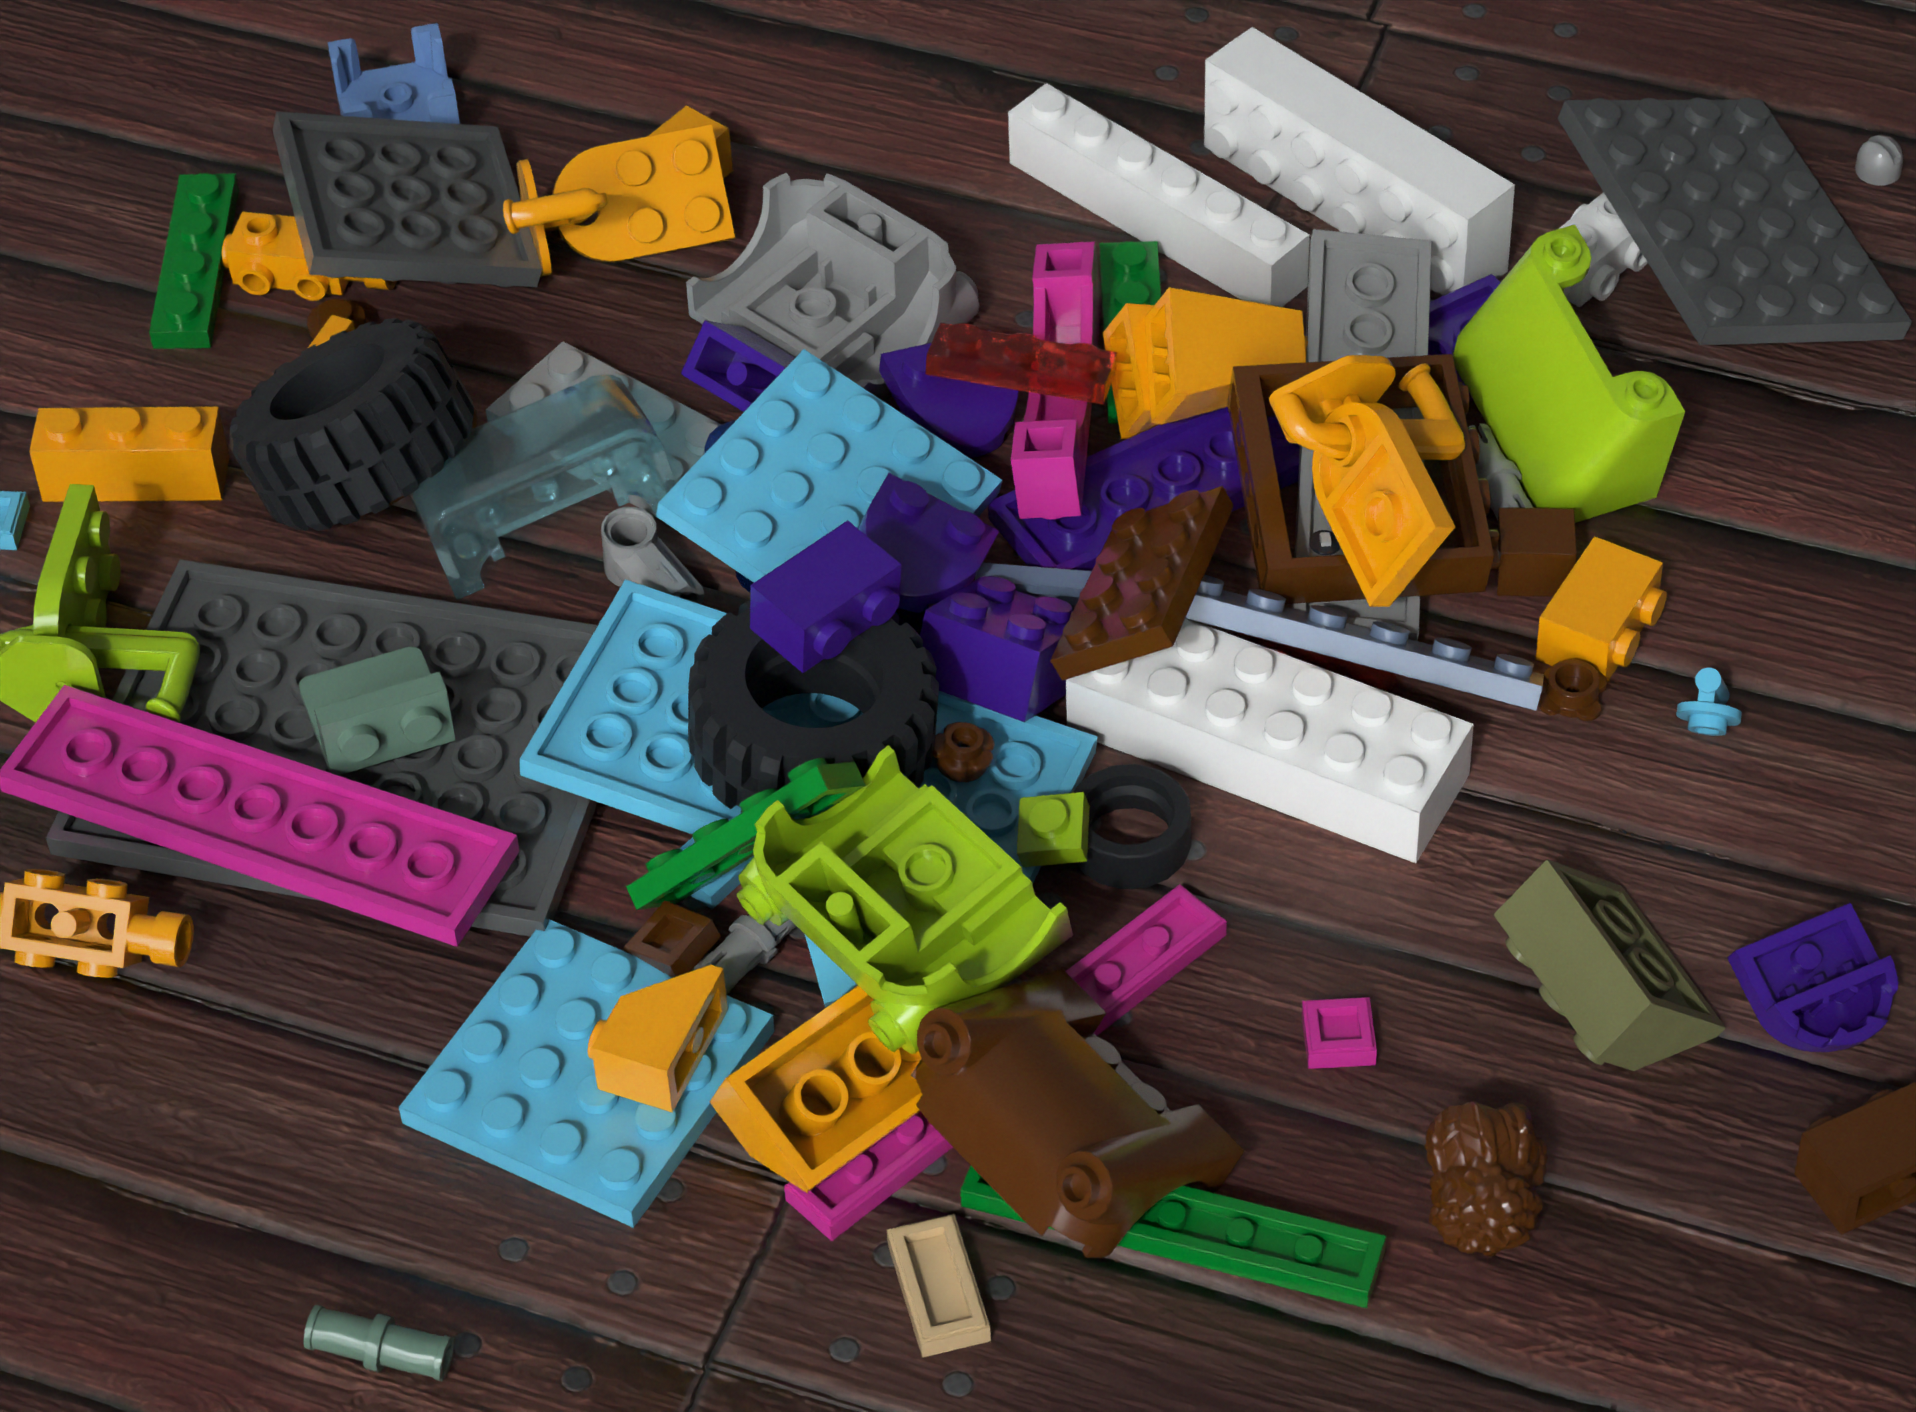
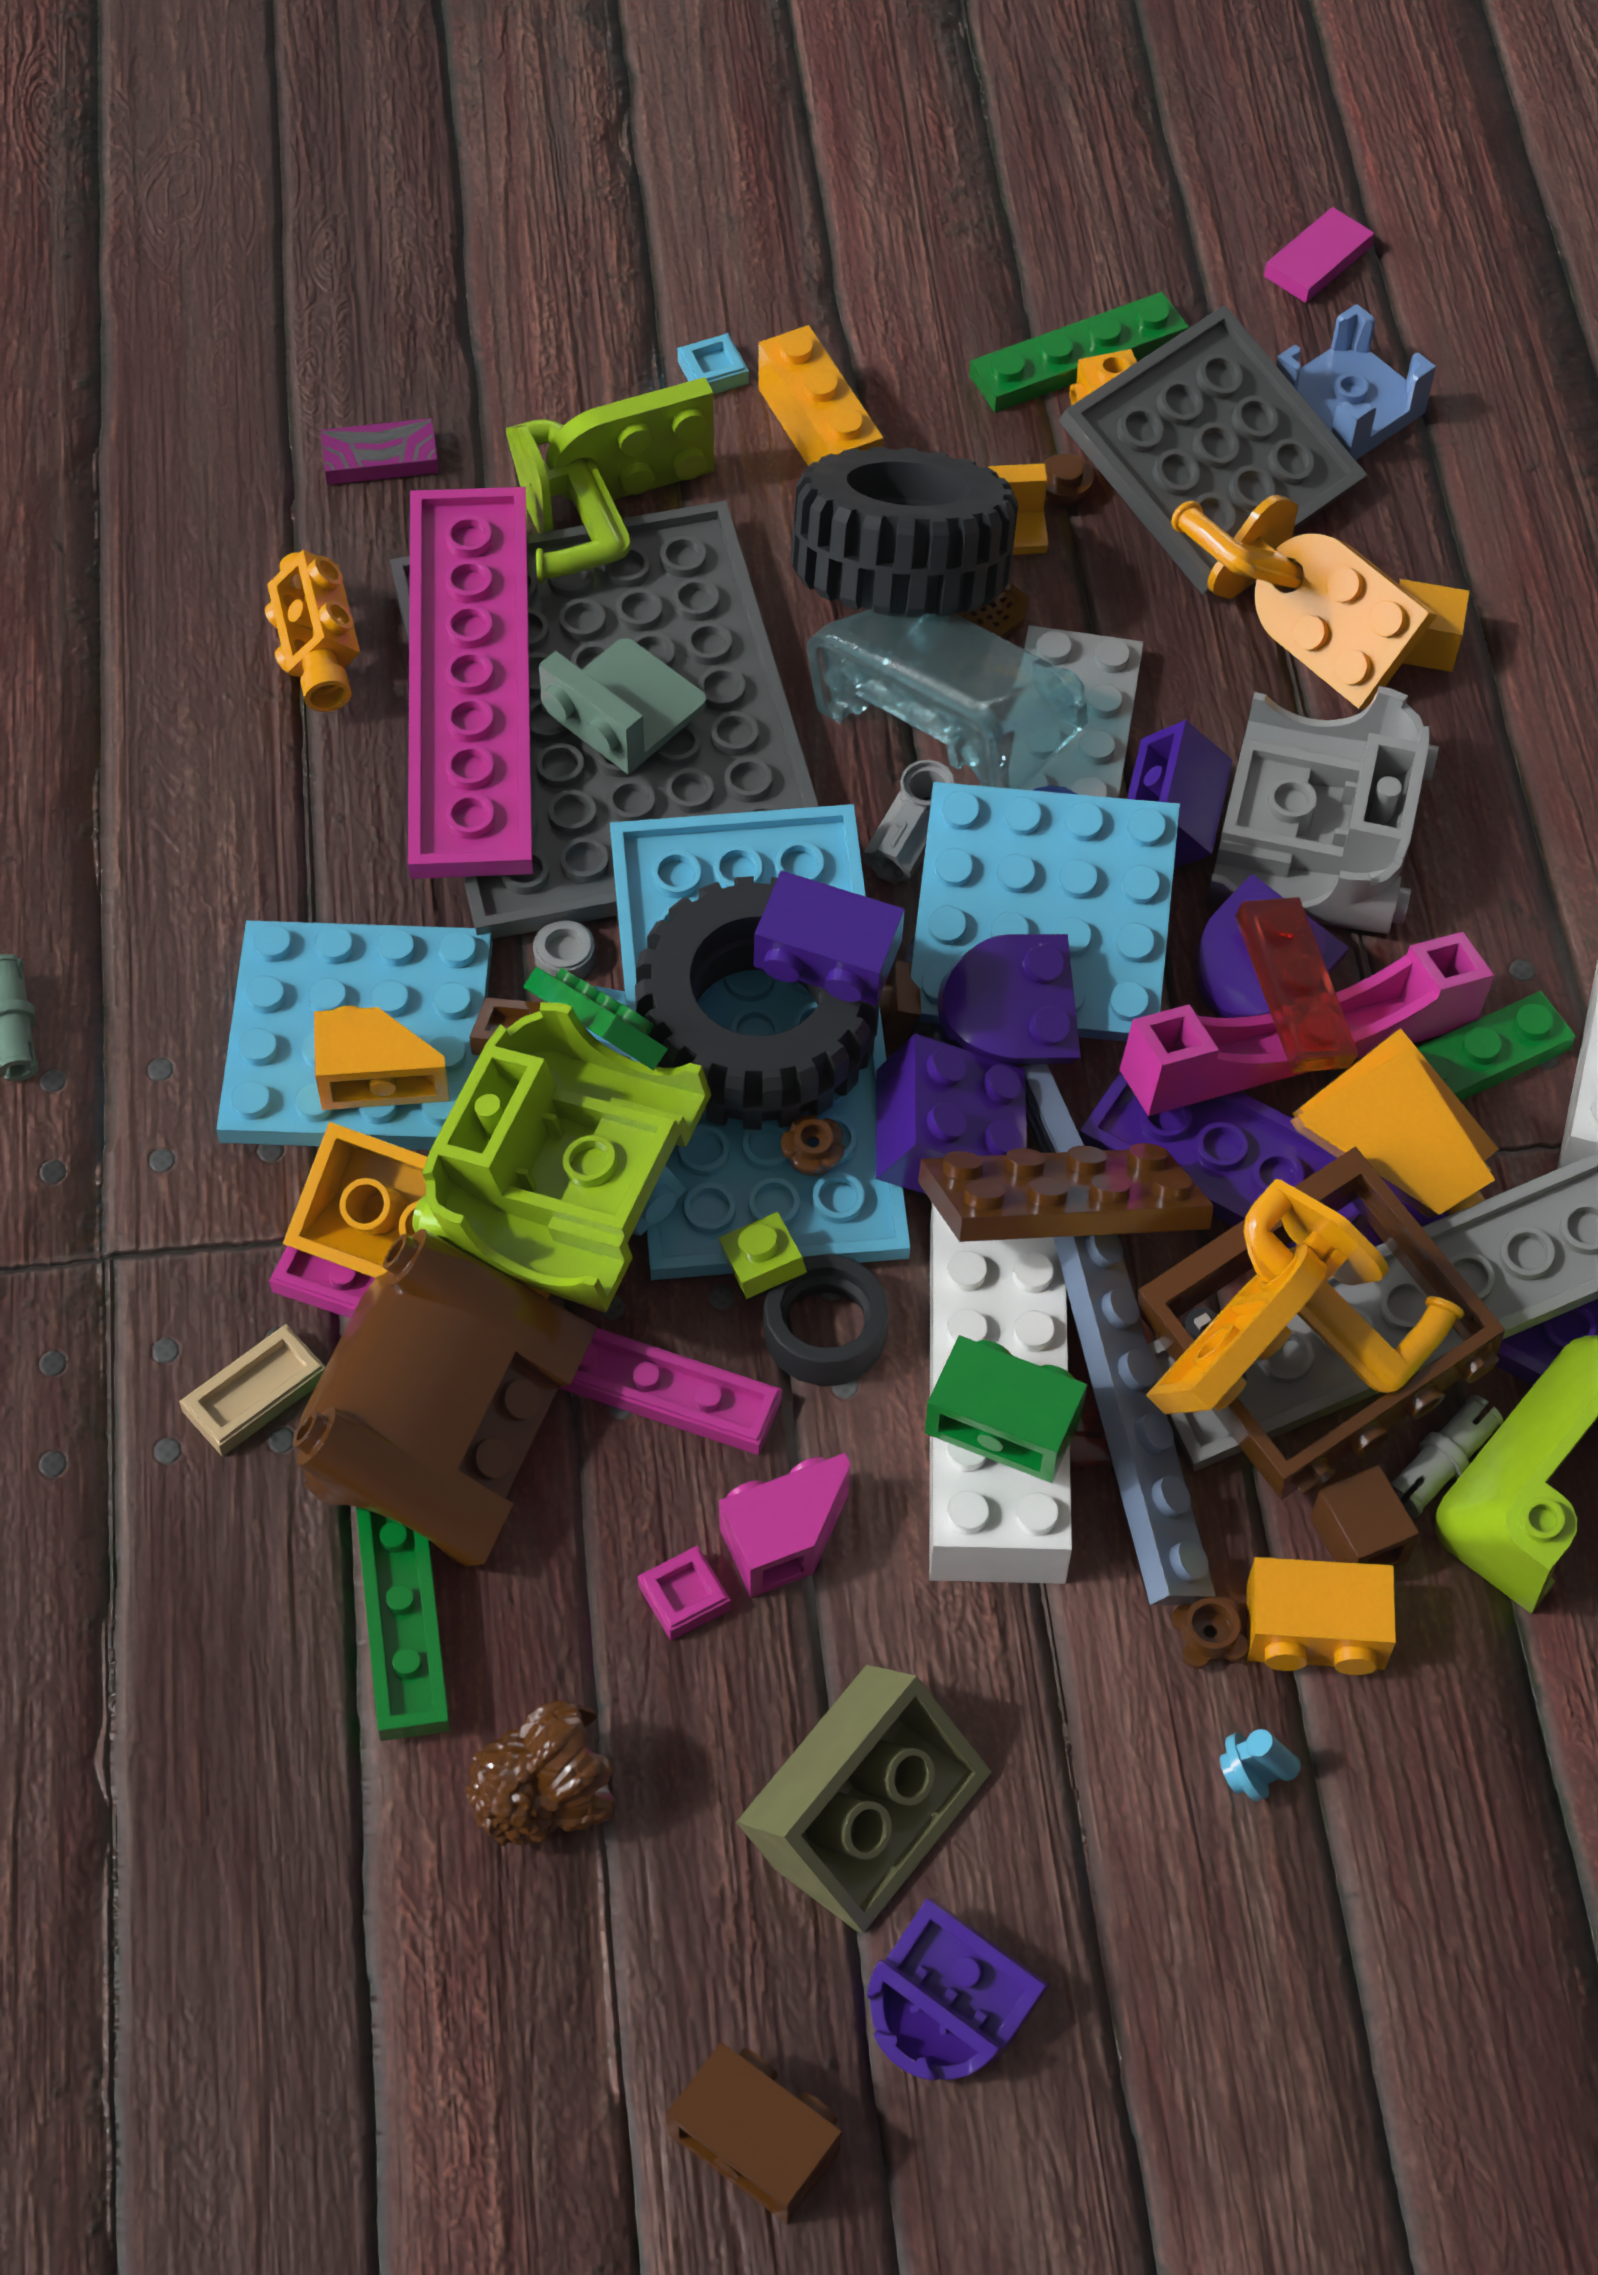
camera: 60 degrees right, 10 degrees up
(220, 62) = (1319, 254): none -> dark pink tile
(600, 878) = (564, 946): none -> light grey tile
(1323, 929) = (784, 1524): none -> dark pink slope
(1336, 694) = (1005, 1407): none -> green brick

